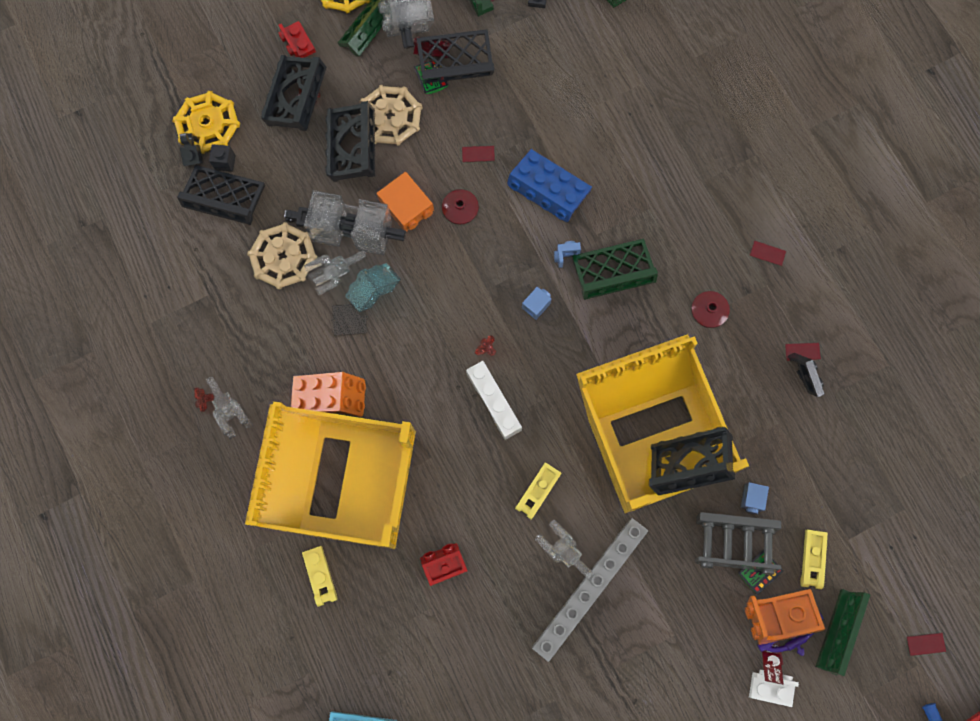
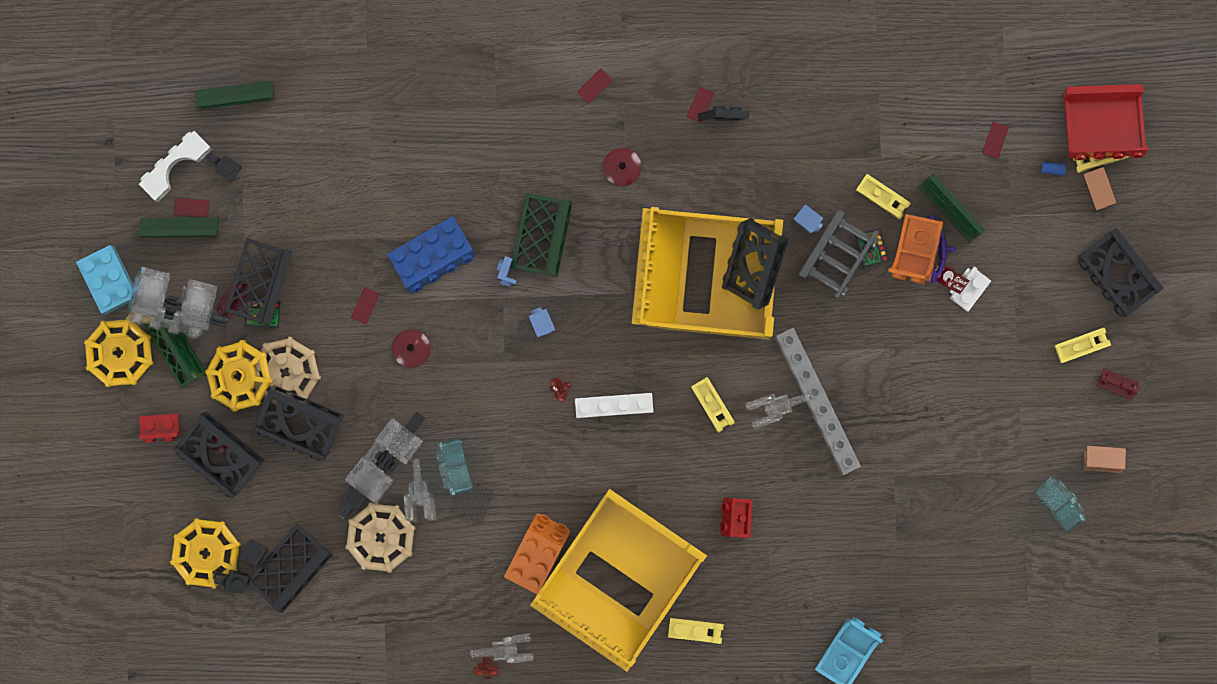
camera: 75 degrees left, 10 degrees up
(359, 69) = (248, 380): none -> yellow plate
(406, 201) = (384, 397): orange brick -> none

